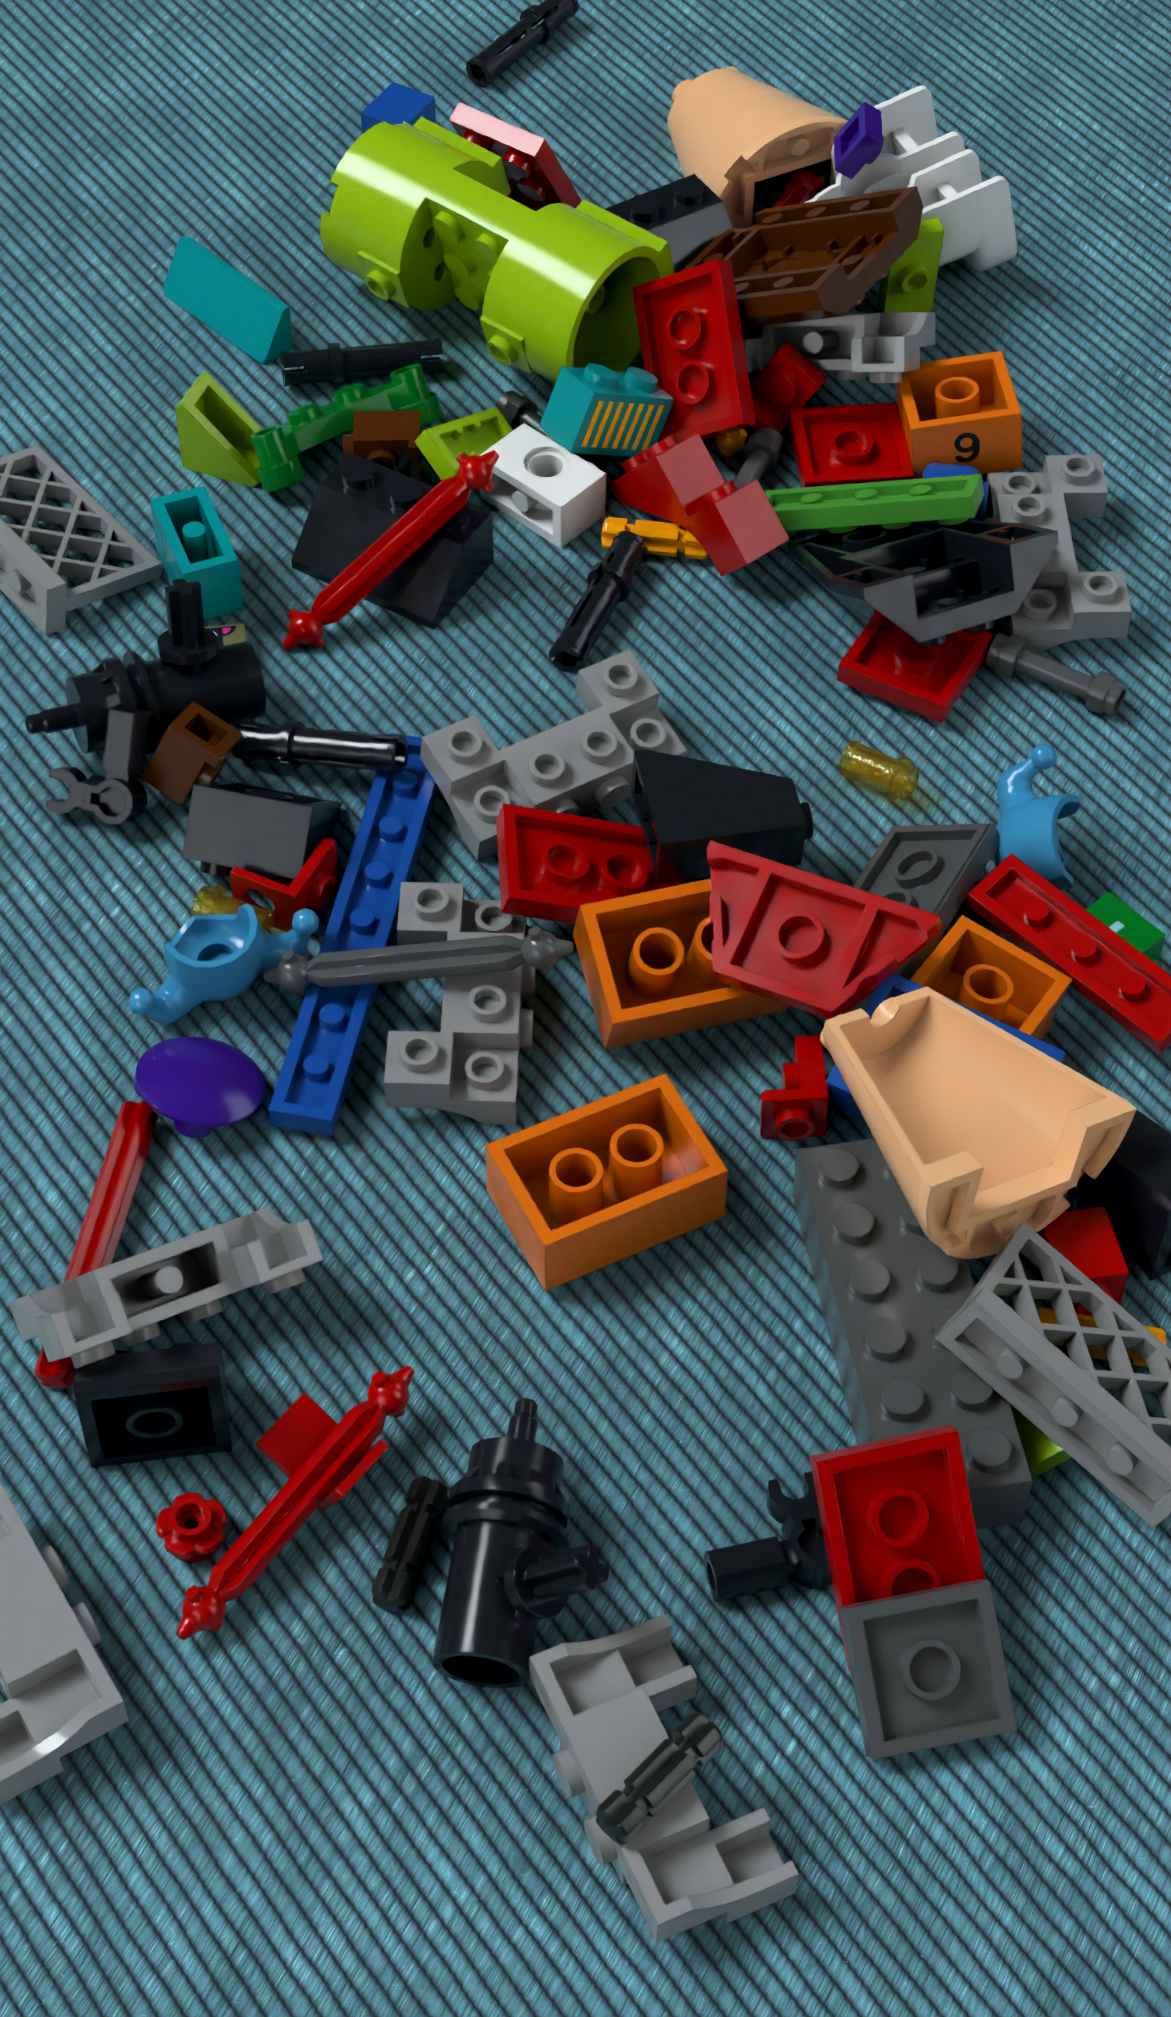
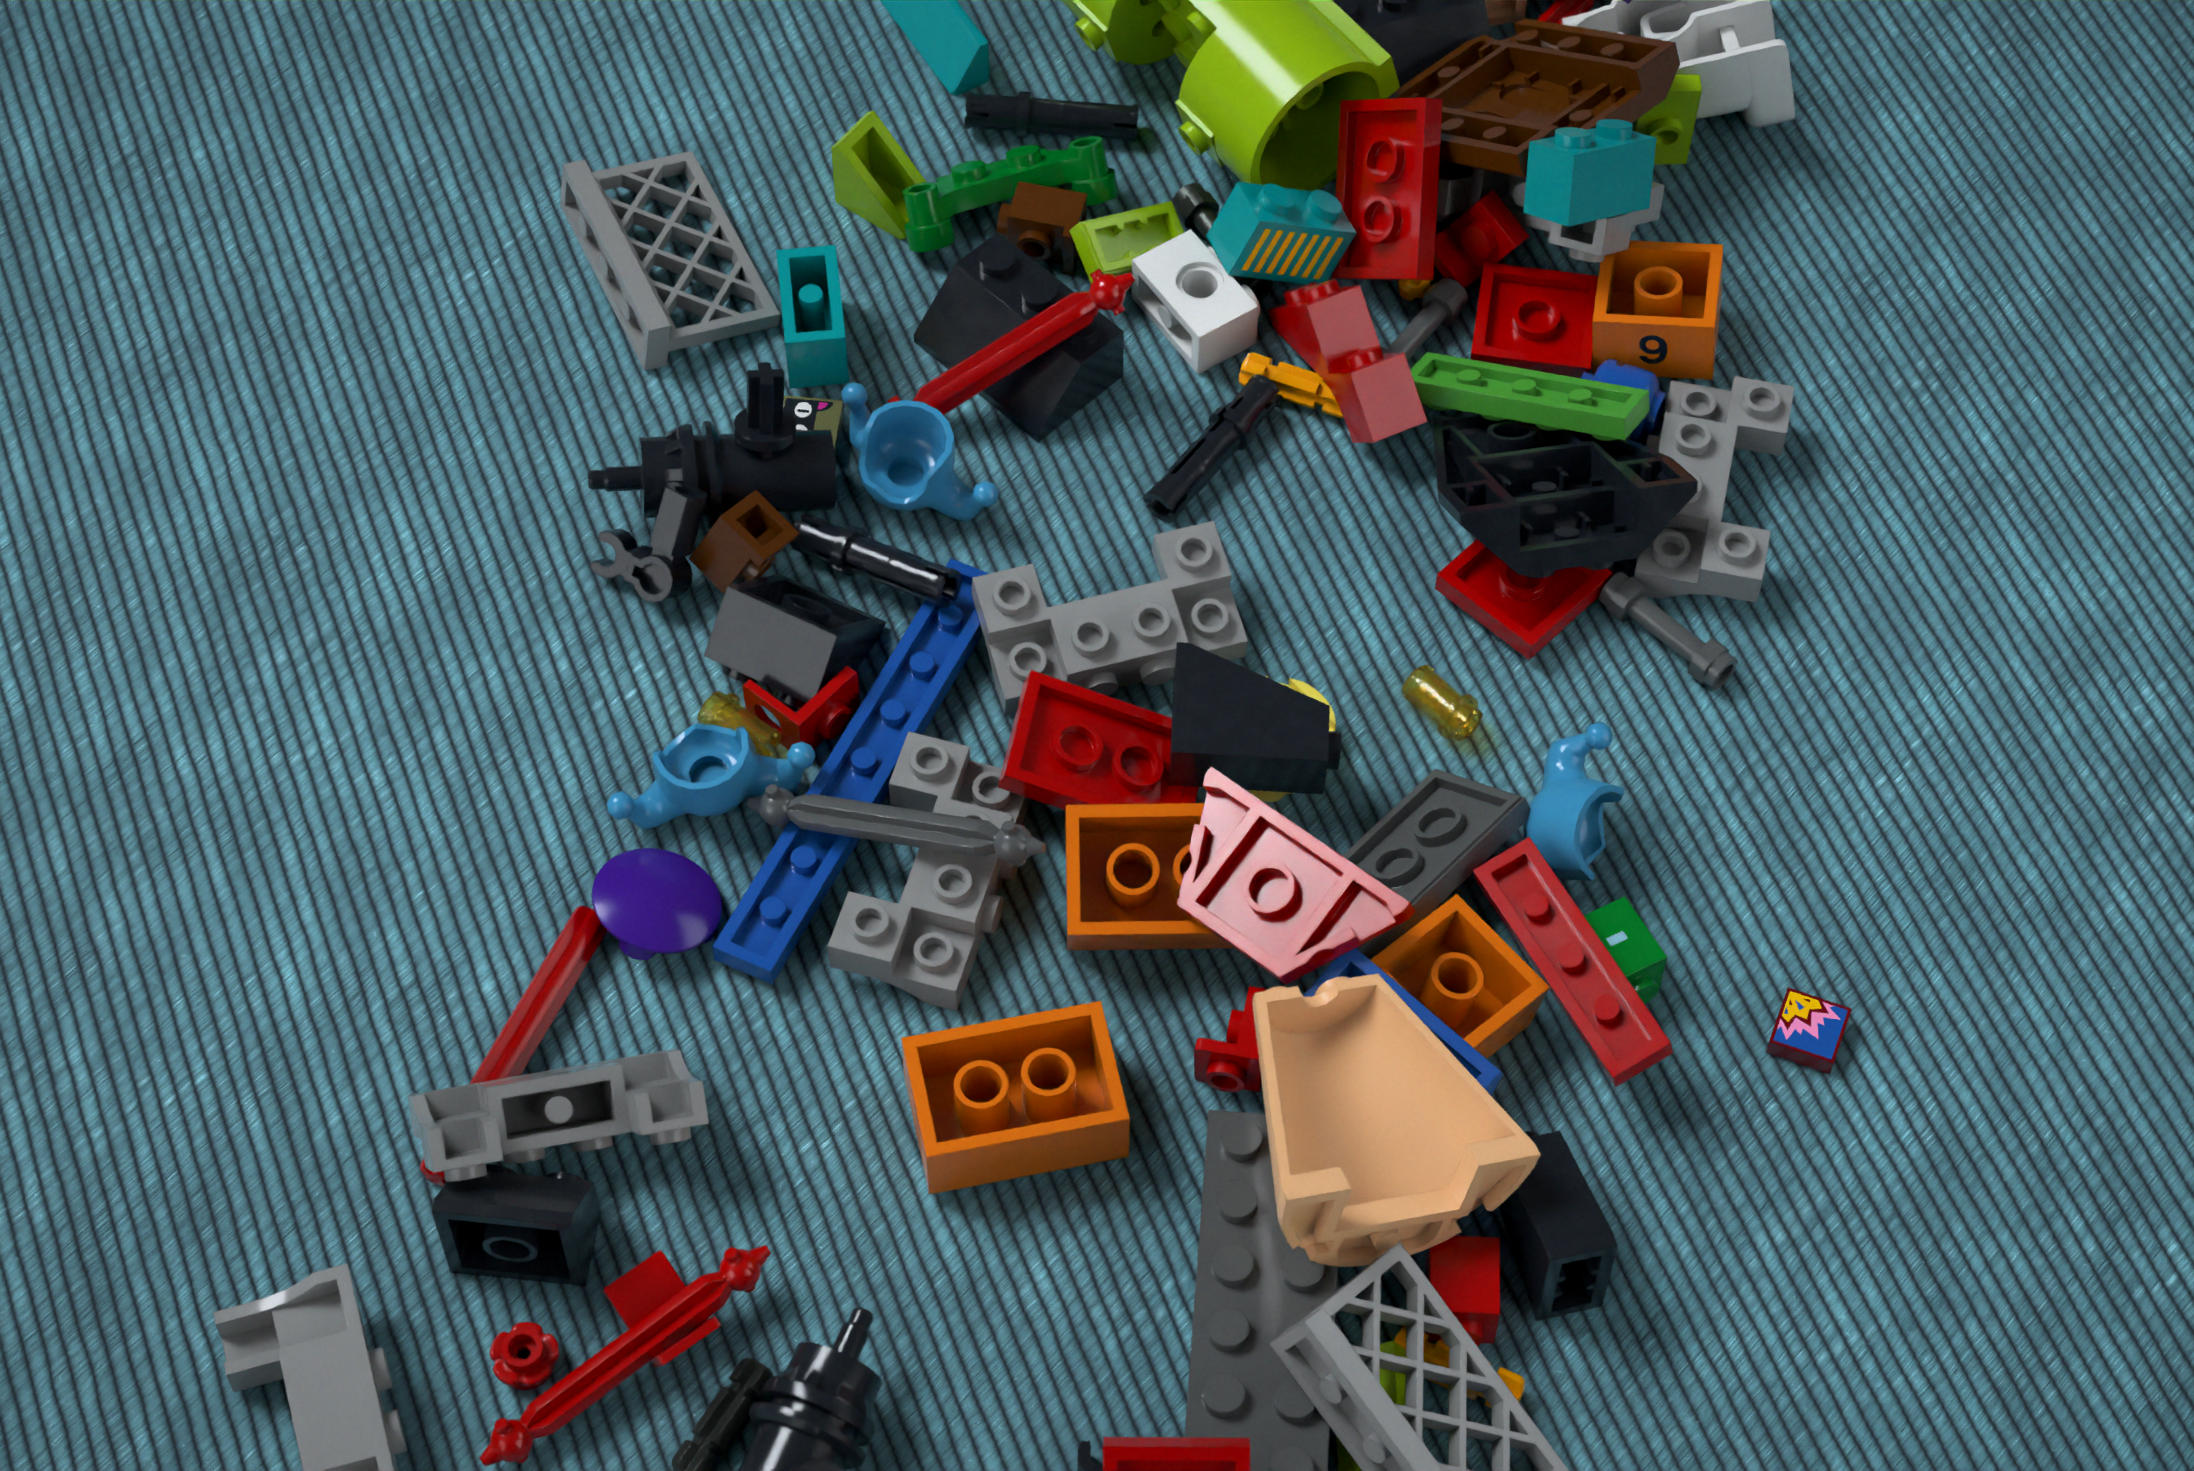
camera: 15 degrees right, 5 degrees up
(326, 654) = (911, 458): none -> dark azure piece
(878, 299) = (1589, 173): none -> teal brick

